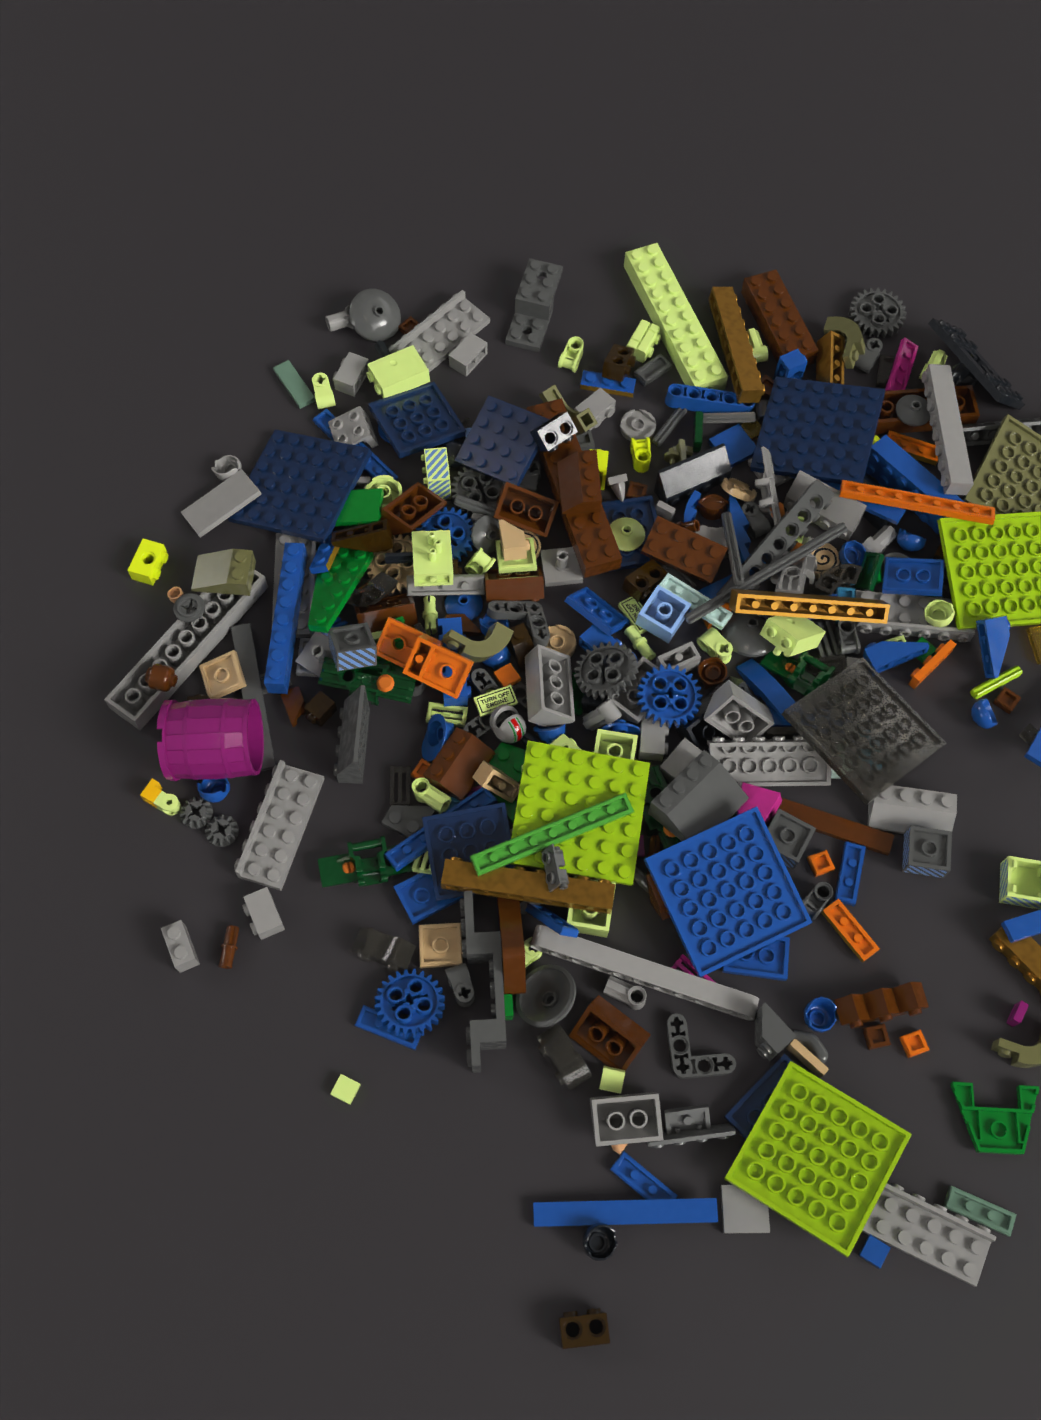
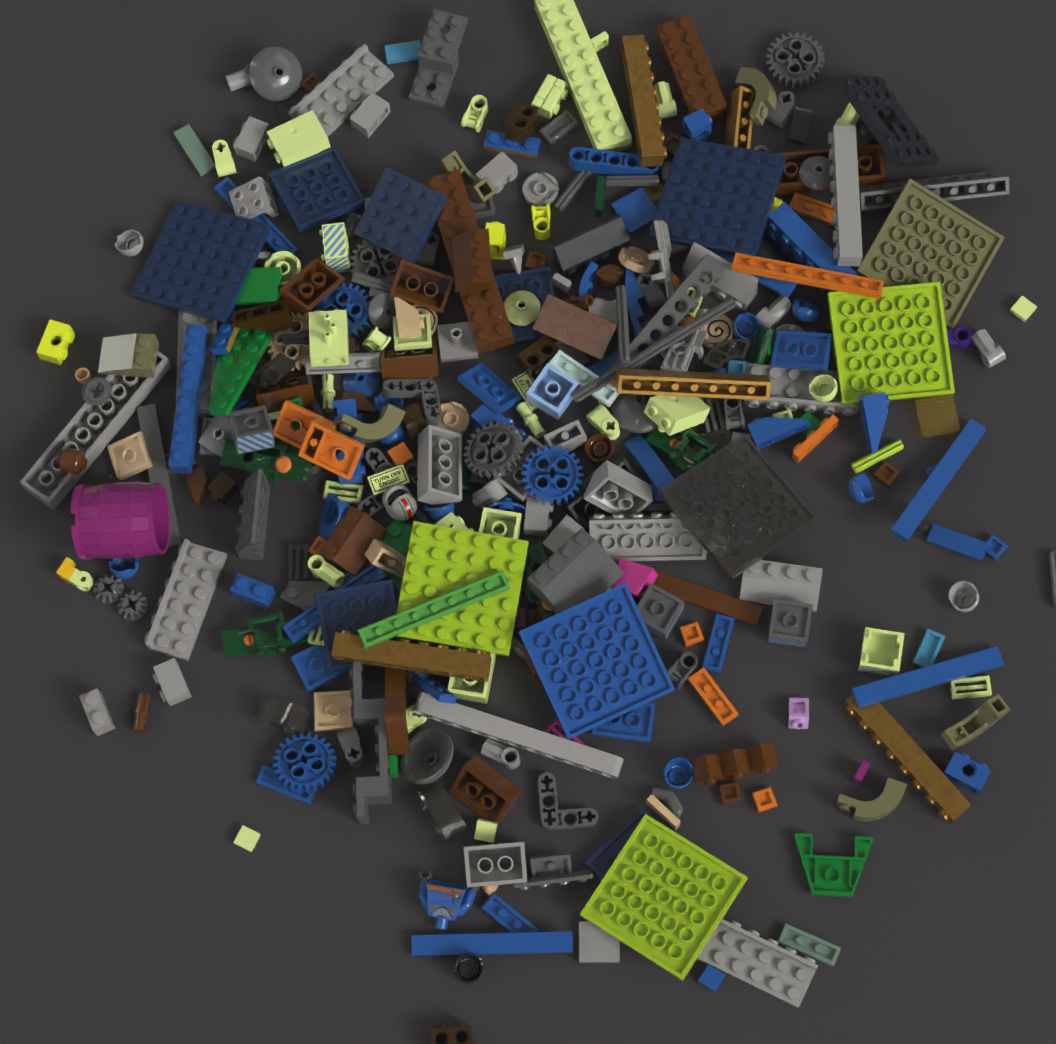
camera: 10 degrees right, 5 degrees up
(221, 503) = (124, 280): light grey tile -> none
(352, 816) = (252, 591): none -> blue brick
(498, 300) = (402, 52): none -> dark azure tile
(552, 428) = (446, 204): brick -> none
(553, 859) = (433, 632): dark grey hinge -> none
(570, 1160) = (445, 899): none -> blue torso
(678, 452) = (578, 221): olive hips -> none
(691, 292) = (600, 41): none -> yellowish green tile
(771, 1033) = (631, 791): dark grey slope -> none
(902, 365) = (815, 121): dark pink tile -> none
(943, 948) = (798, 713): none -> lavender bracket

